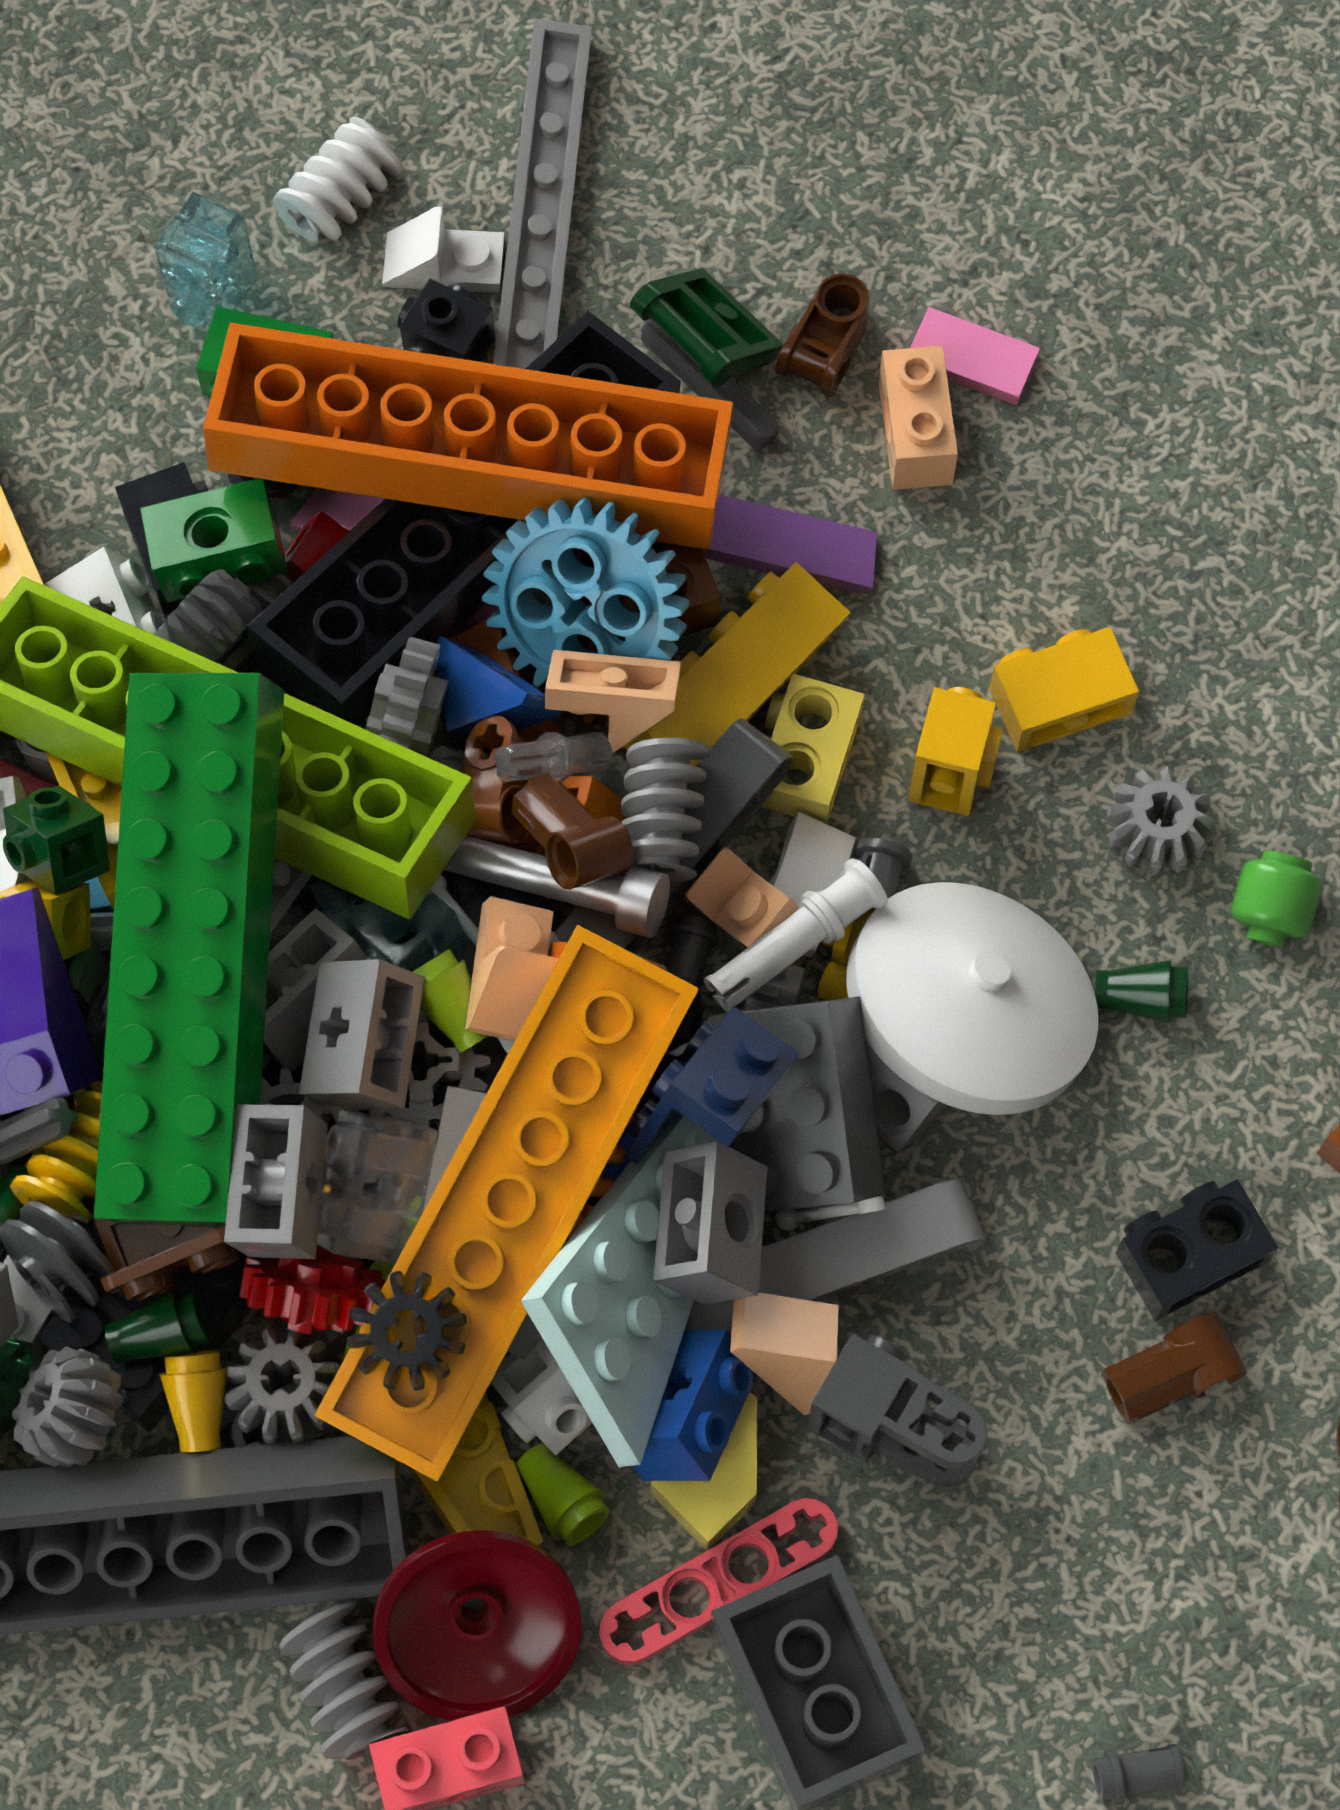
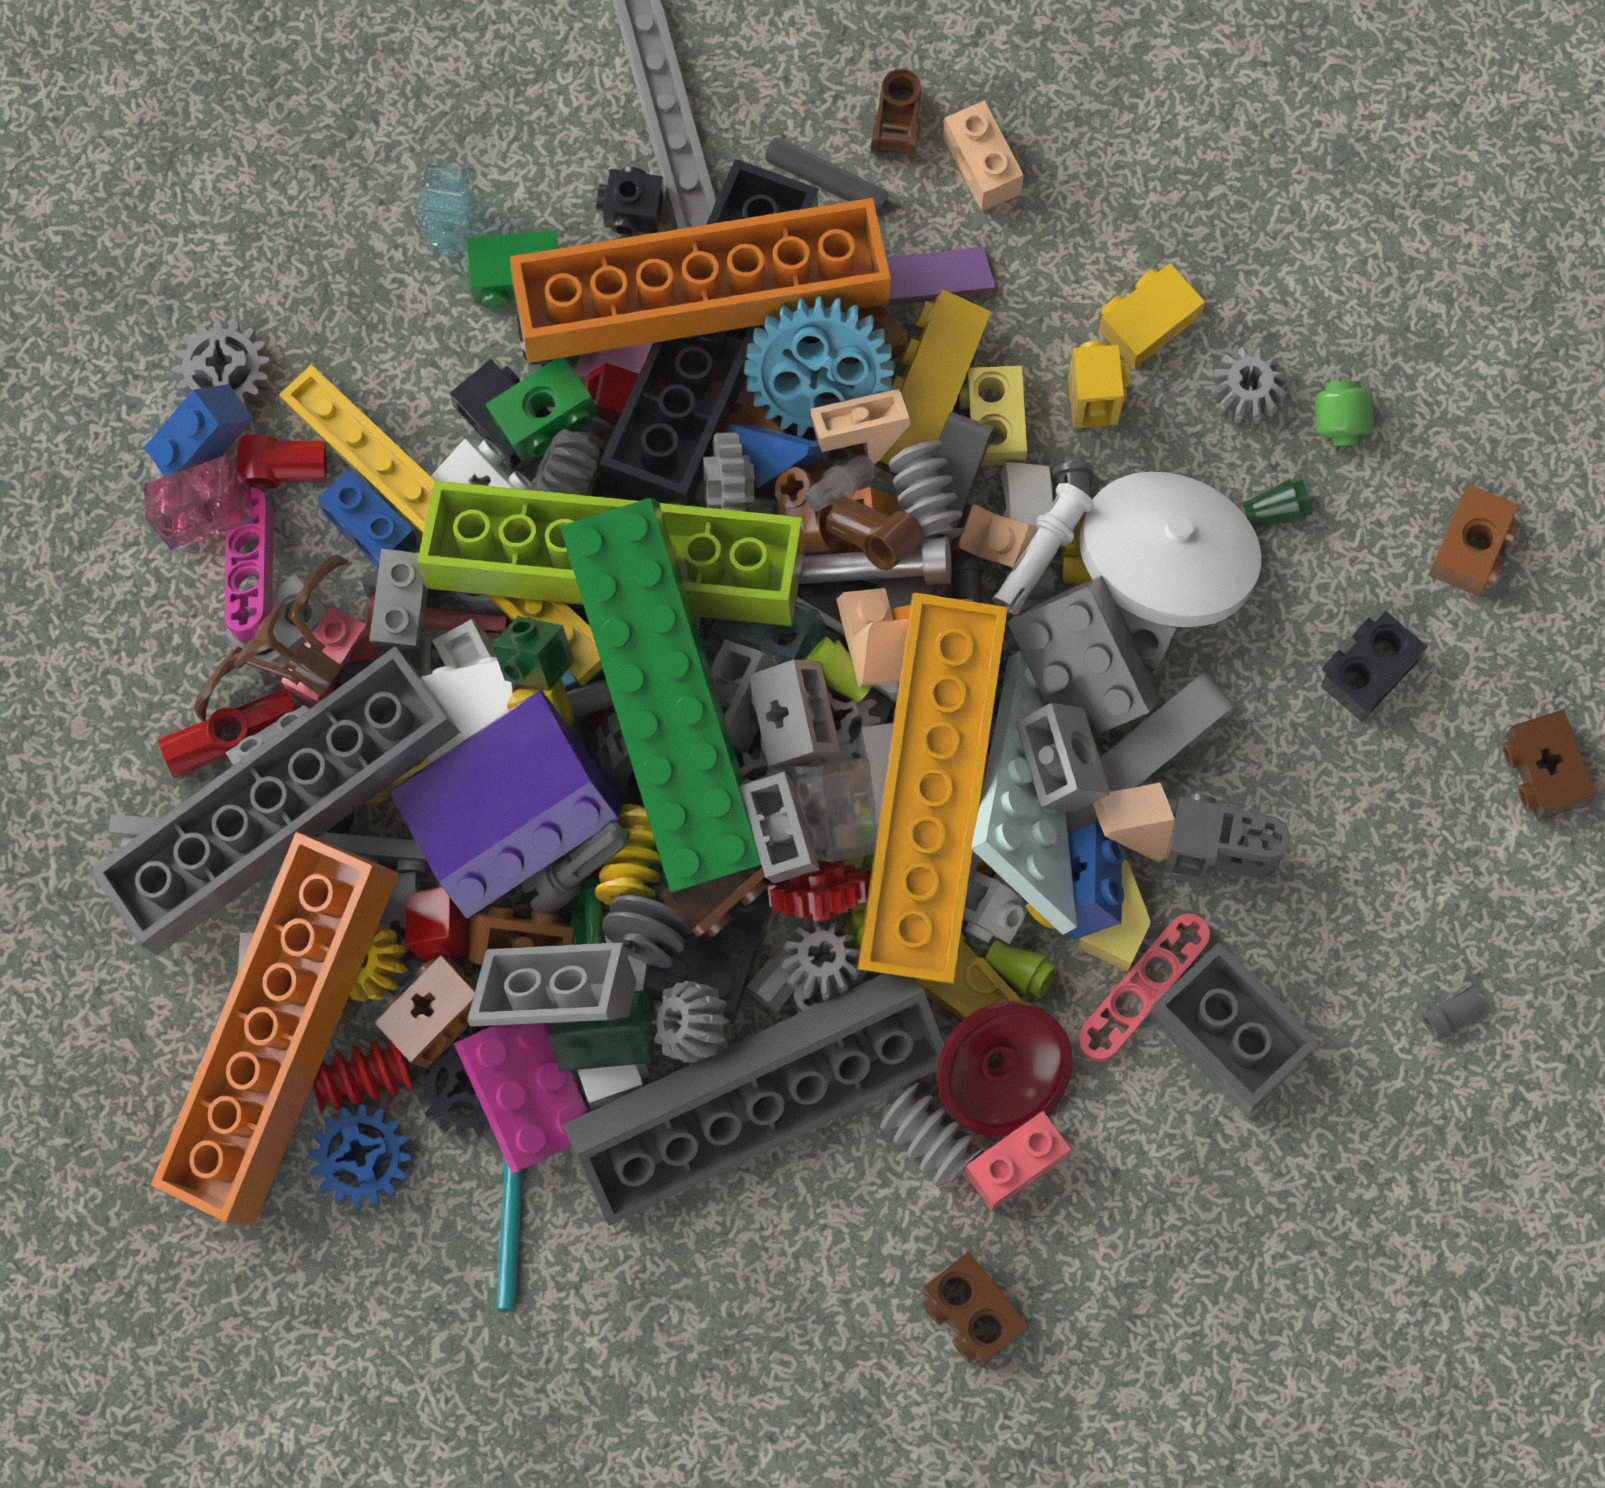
camera: 20 degrees left, 5 degrees up
(163, 1327) = (729, 950): dark green cone -> none
(196, 1398) = (767, 986): yellow cone -> none
(336, 179) = (509, 115): white piece -> none
(388, 1317) = (919, 898): black gear -> none
(451, 257) = (598, 147): white slope -> none
(707, 324) = (812, 136): dark green plate -> none
(720, 1085) = (1039, 664): dark blue bracket -> none
(790, 1218) = (1102, 738): white hinge -> none
(979, 355) = (1006, 95): bright pink tile -> none
(1180, 1366) = (1391, 744): reddish brown piece -> none

